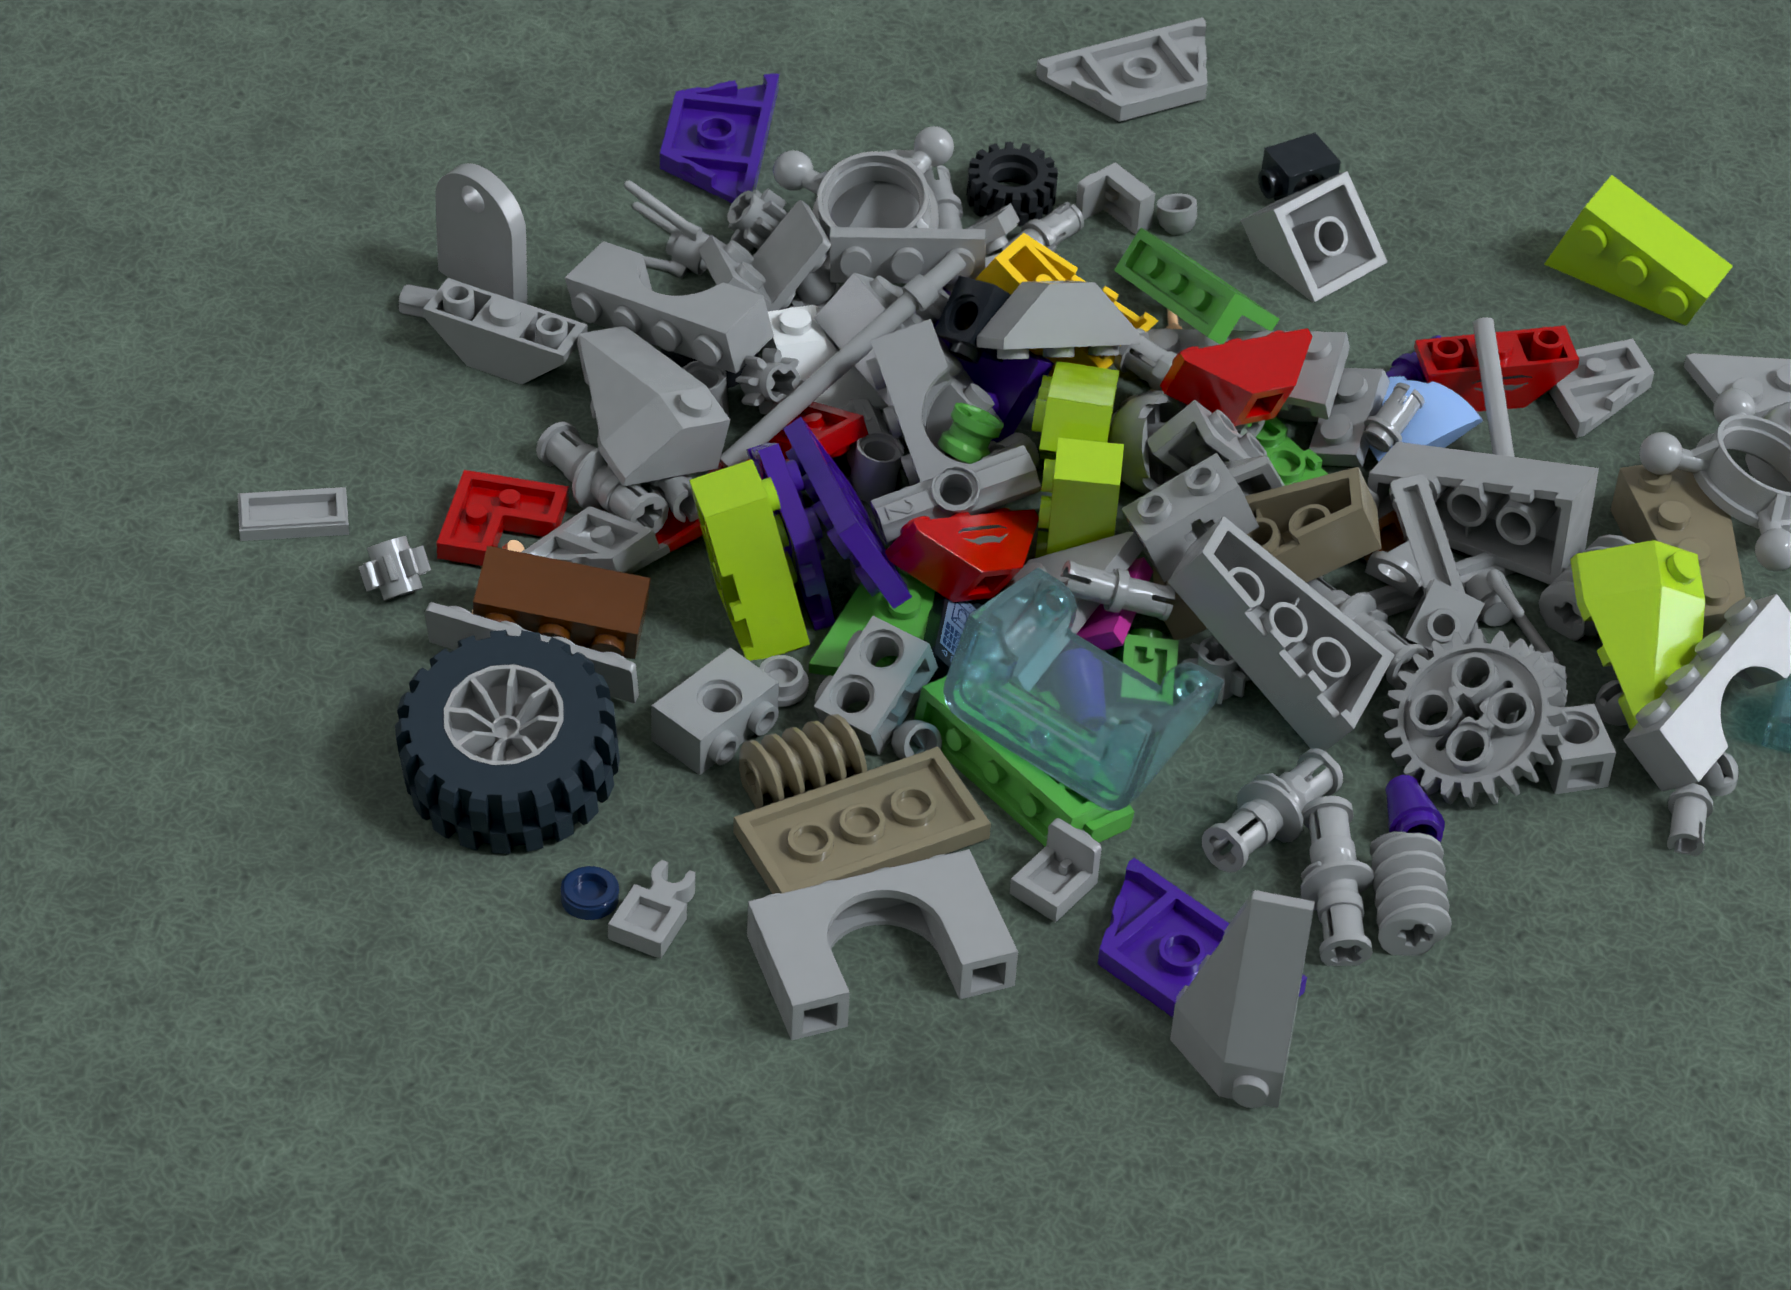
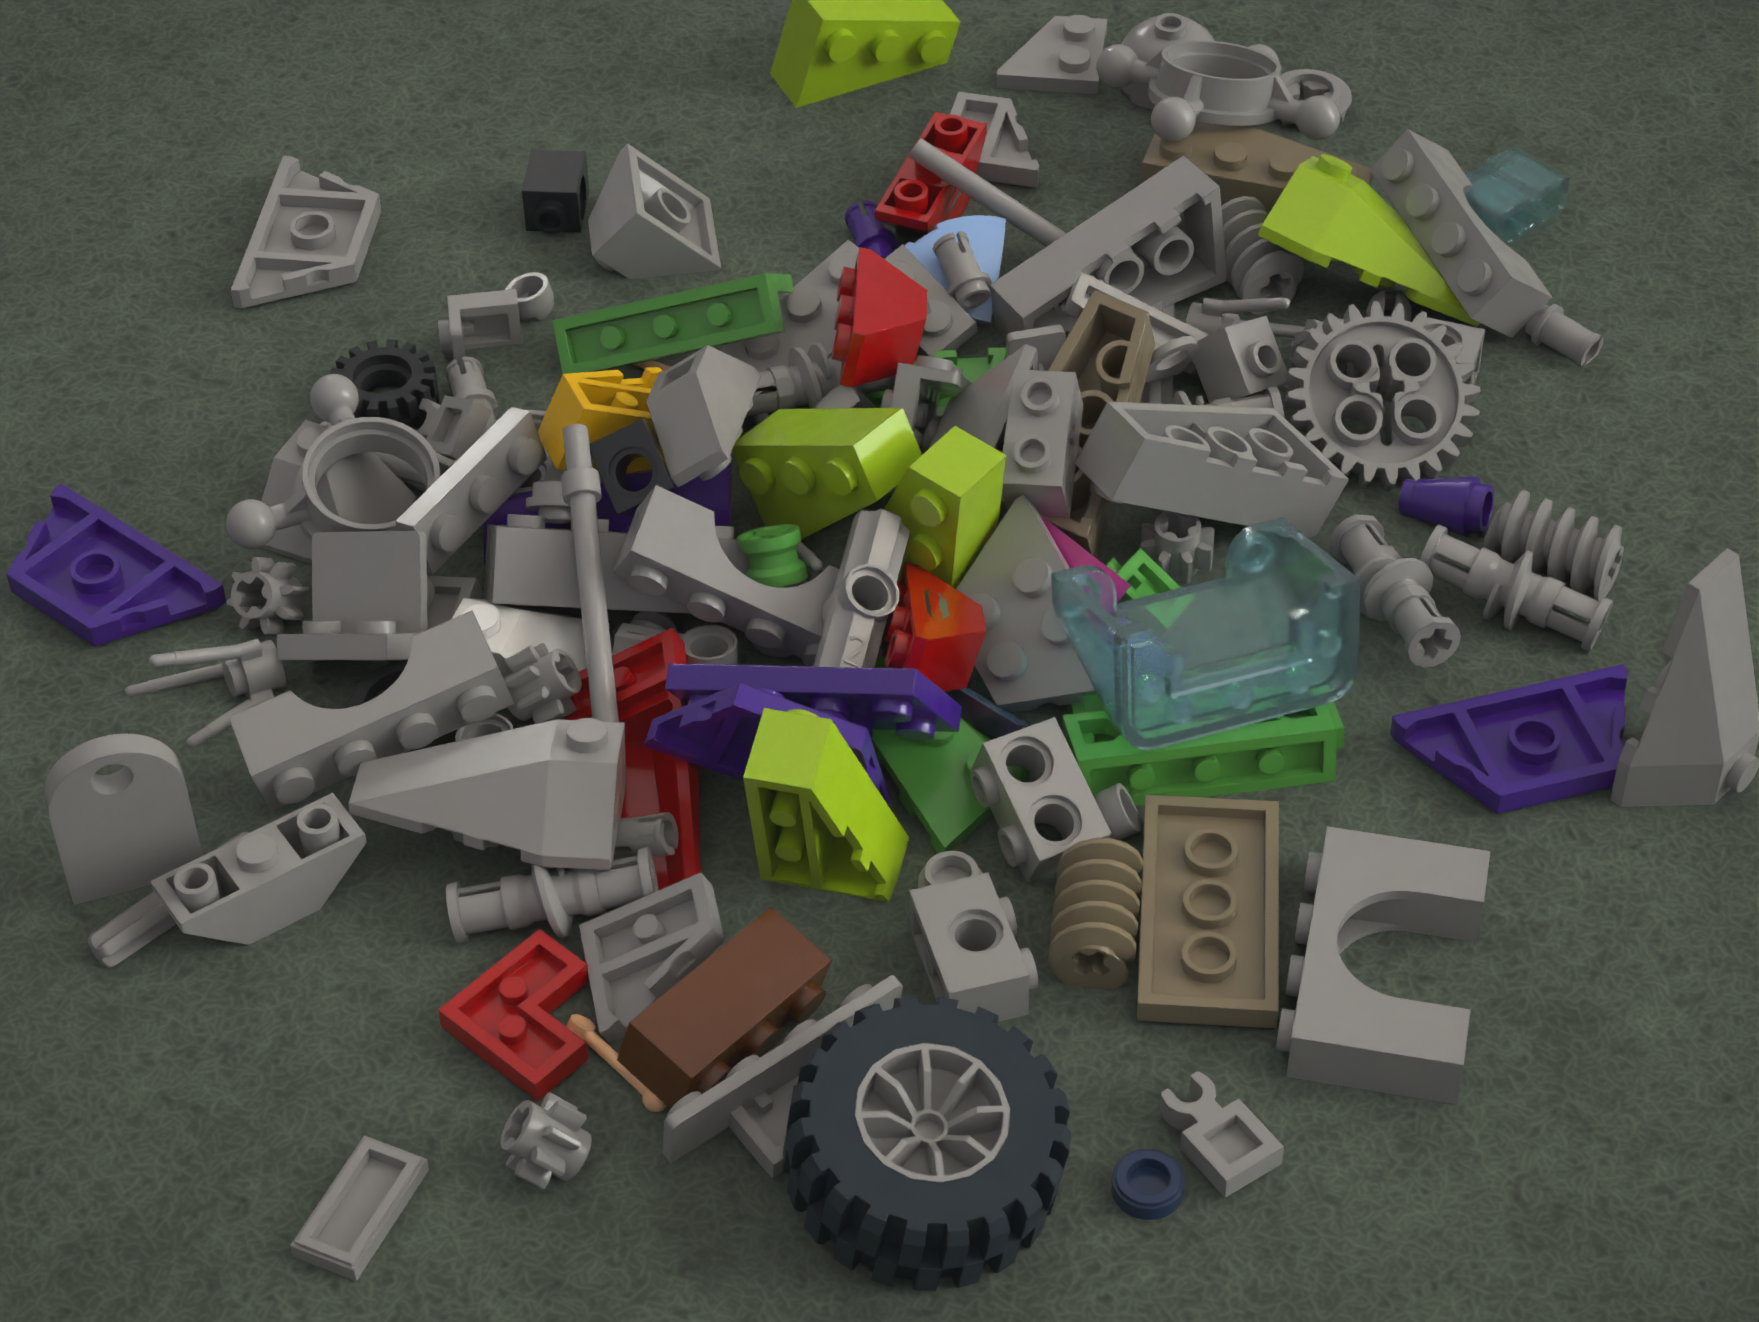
camera: 55 degrees left, 0 degrees up
(1059, 871) = (1373, 781): light grey bracket -> none
(1118, 590) = (1091, 540): light grey pin -> none

